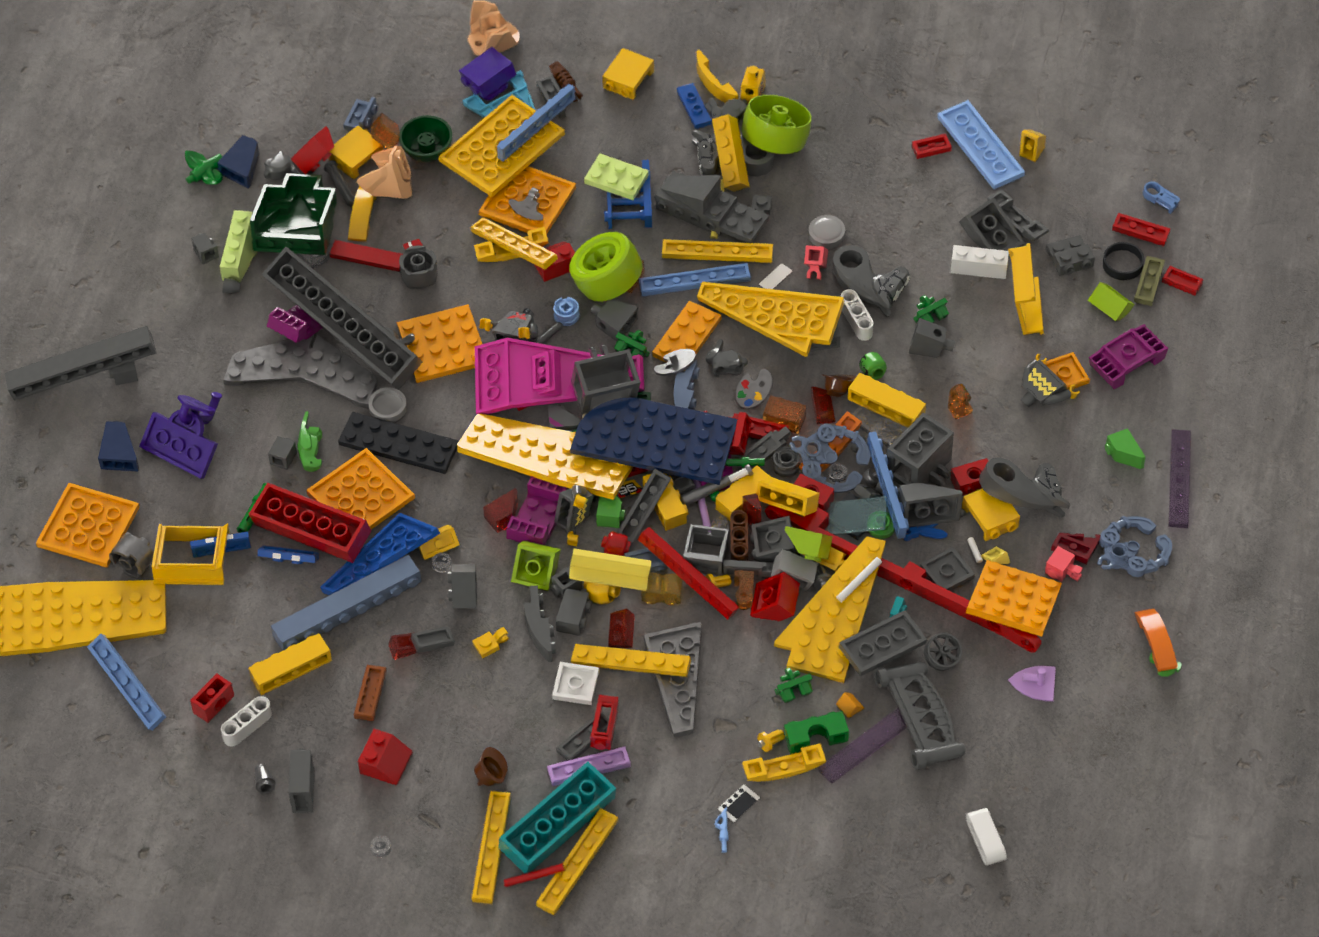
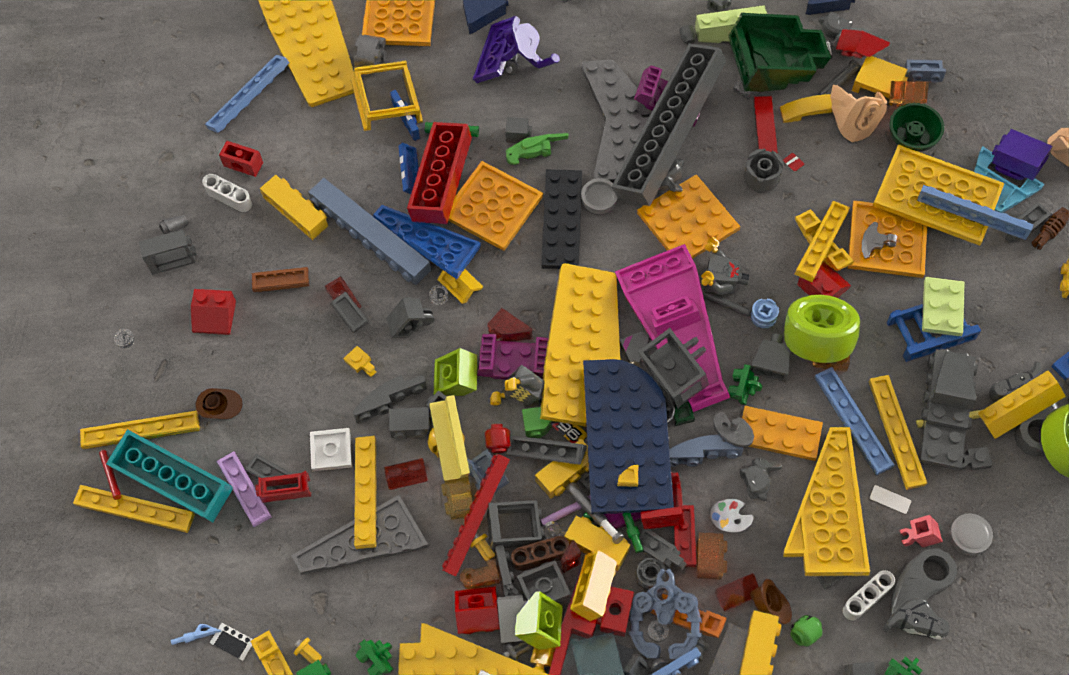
camera: 75 degrees right, 10 degrees up
(699, 440) = (629, 477): none -> yellow tile

